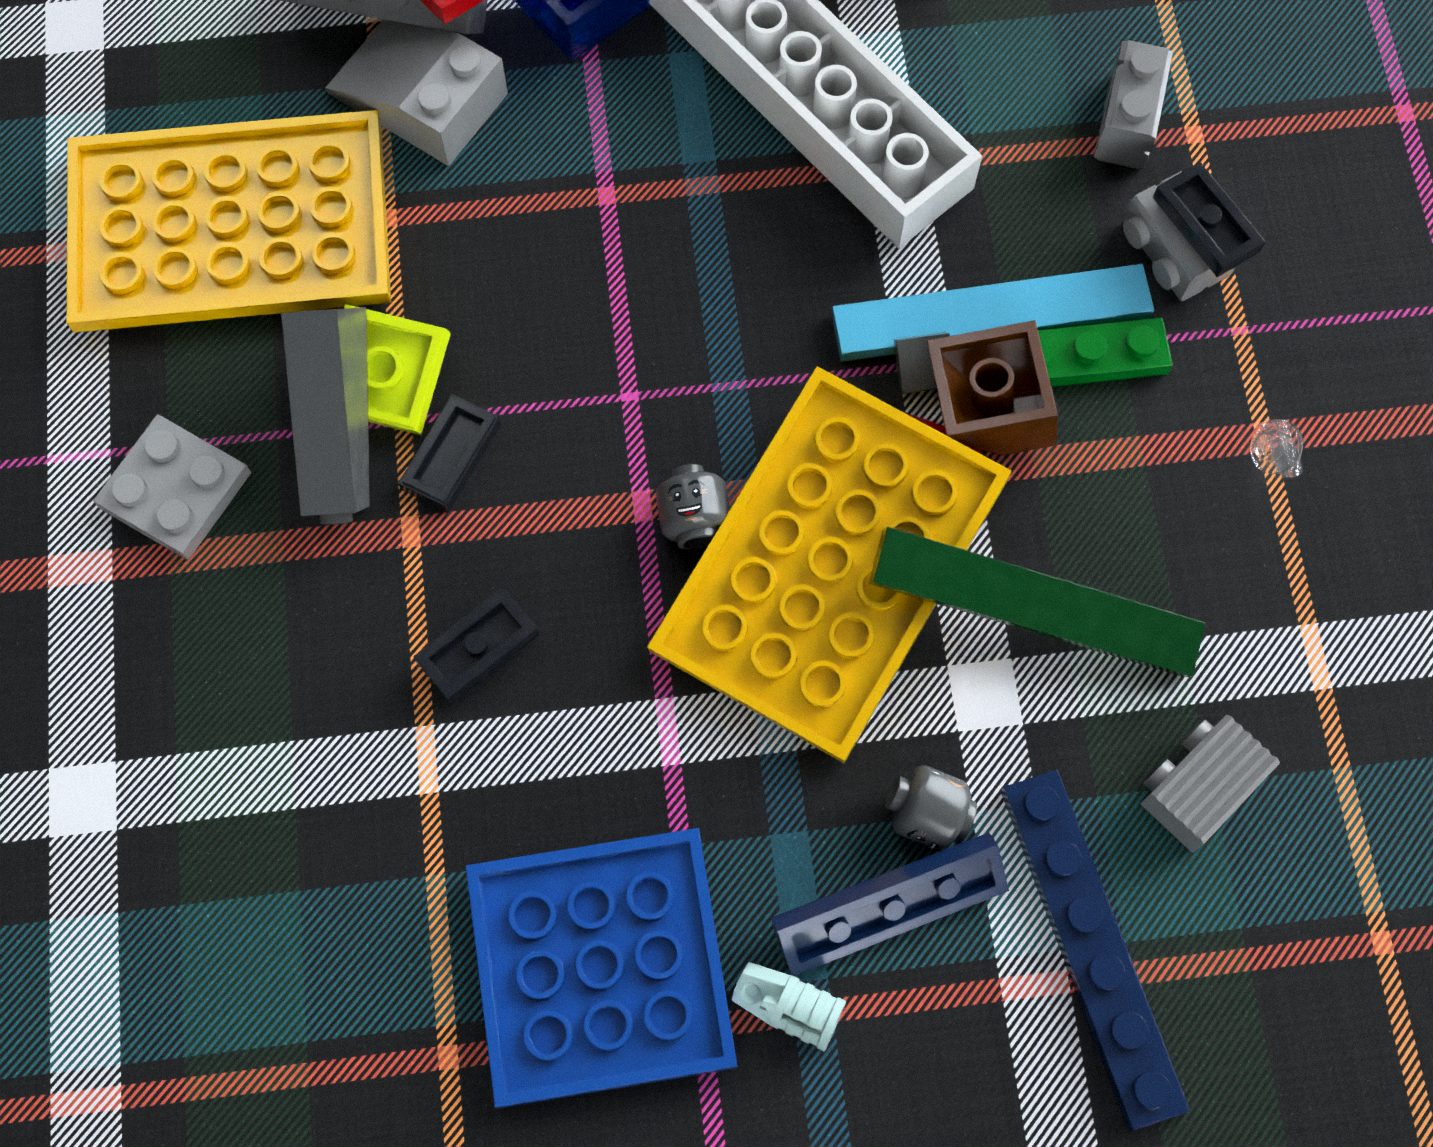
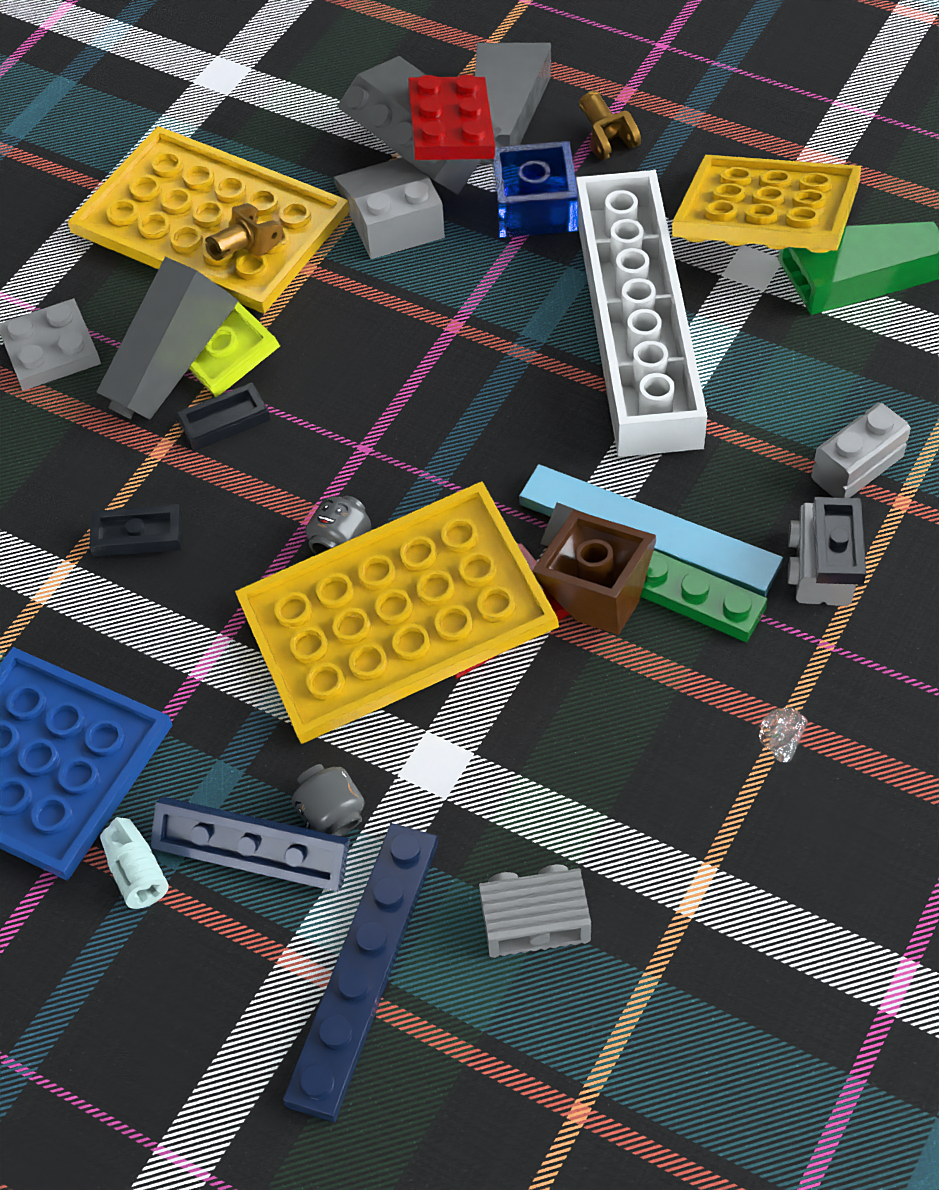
camera: 40 degrees right, 15 degrees down
(303, 224) = (244, 234): none -> pearl gold piece
(1036, 602) = (511, 717): dark green tile -> none

